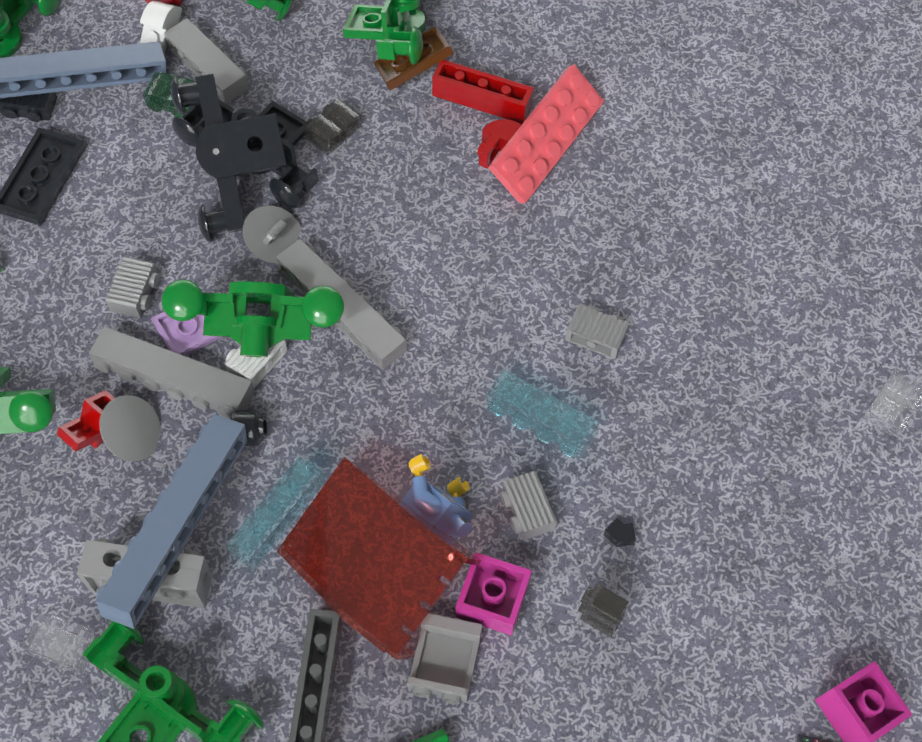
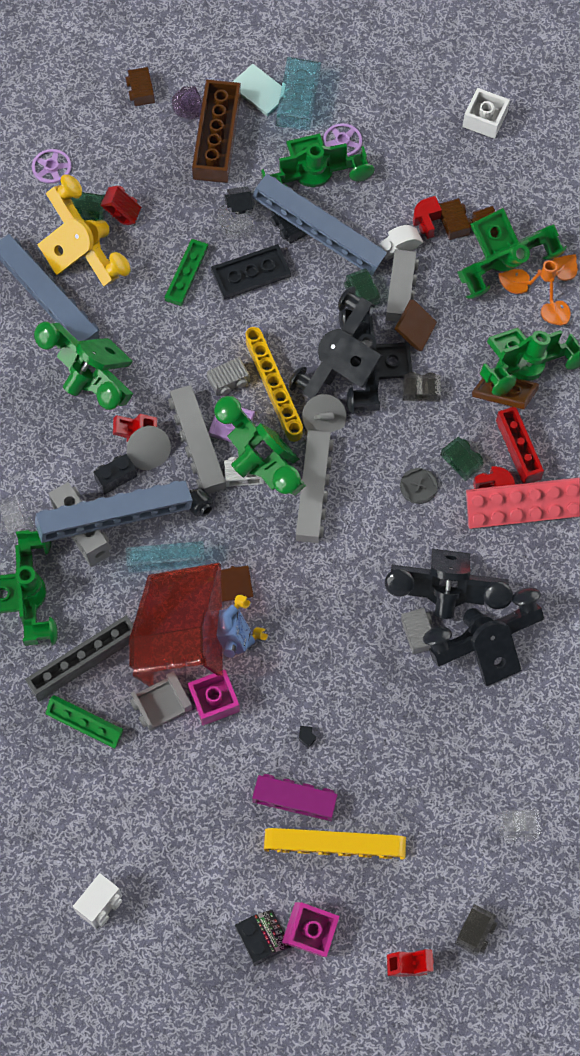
camera: 50 degrees right, 5 degrees up
(123, 488) = (115, 473): none -> black brick
(177, 243) = (273, 376): none -> yellow beam
(262, 78) = (415, 325): none -> reddish brown tile
(378, 463) = (236, 582): none -> reddish brown piece
(434, 211) = (418, 486): none -> dark grey tile
(445, 150) = (462, 458): none -> clear green brick
(528, 505) = (280, 676): light grey brick -> none
(542, 414) = (340, 641): clear light blue brick -> none
(598, 244) = (449, 567): none -> black piece
(602, 609) = (251, 757): clear smoke brick -> none
(673, 258) = (488, 637): none -> black piece
(684, 602) = (294, 798): none -> magenta brick
(771, 604) = (335, 842): none -> yellow beam

